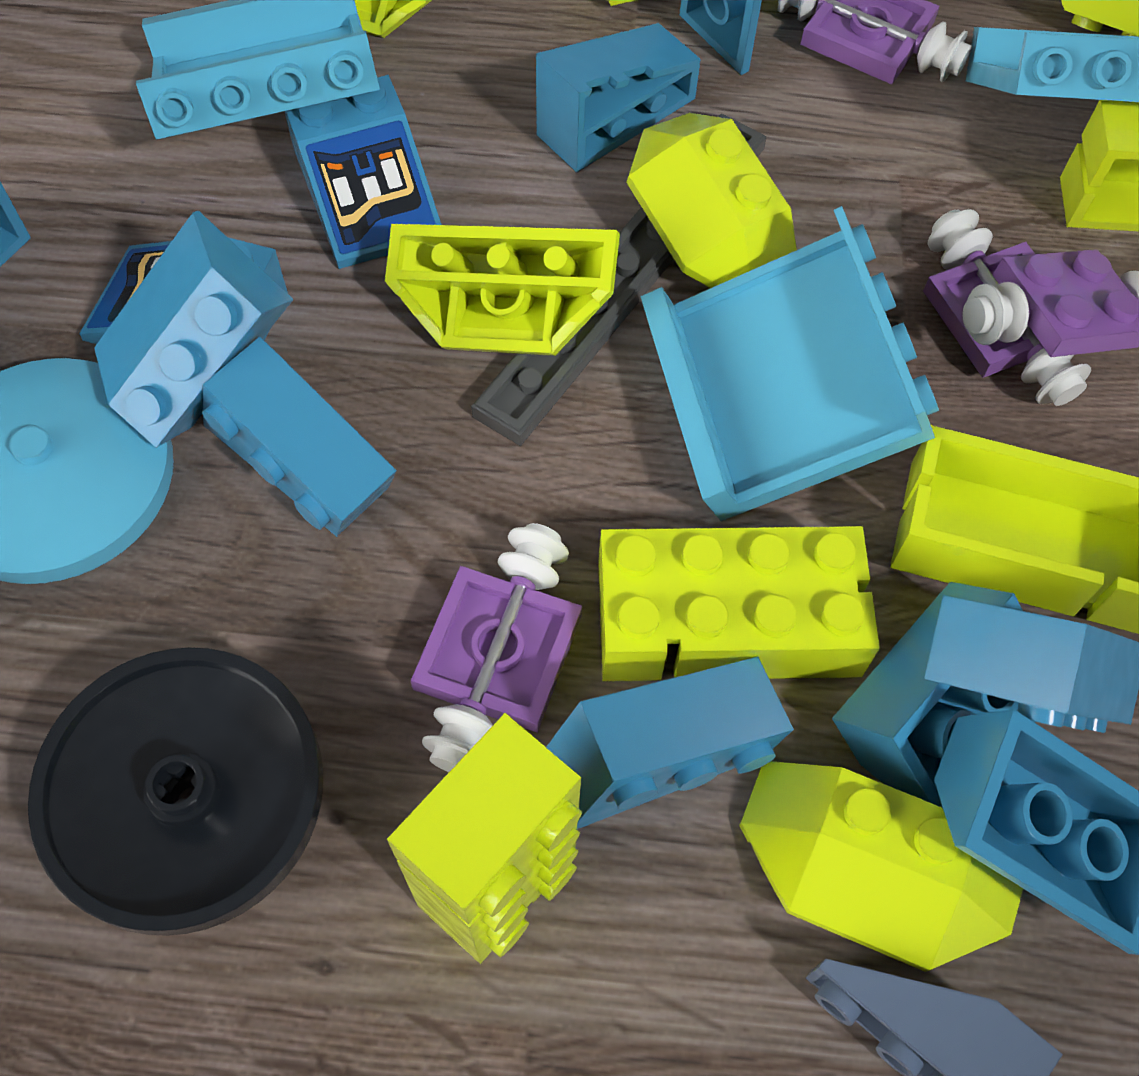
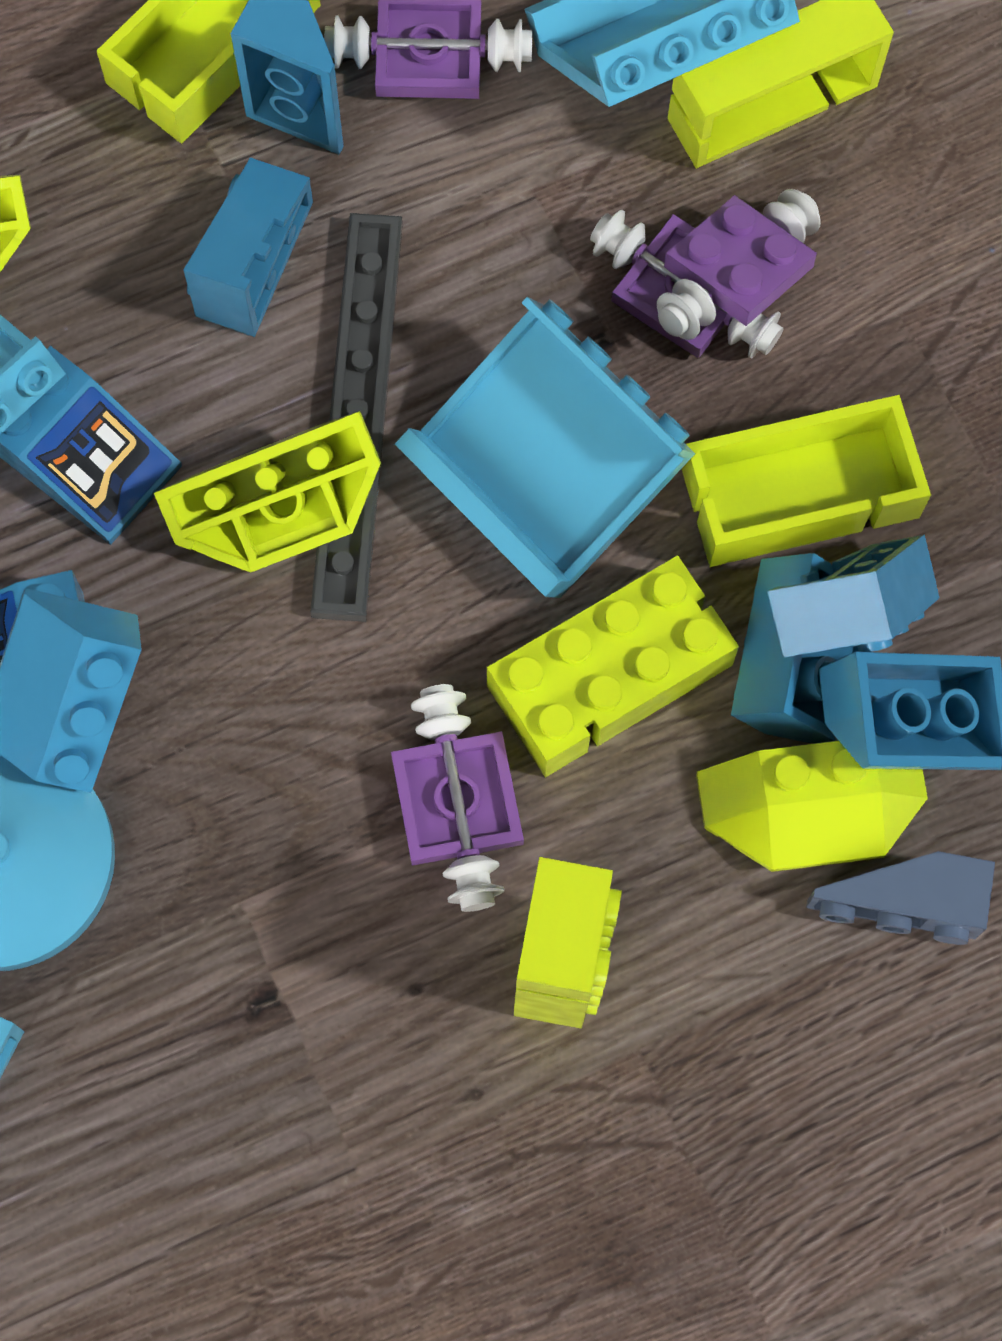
camera: 30 degrees left, 10 degrees up
(113, 779) = (287, 978): black dish -> none
(294, 438) = (203, 725): dark azure wedge -> none
(670, 736) = (627, 792): dark azure wedge -> none
(710, 198) = (396, 318): neon yellow wedge -> none

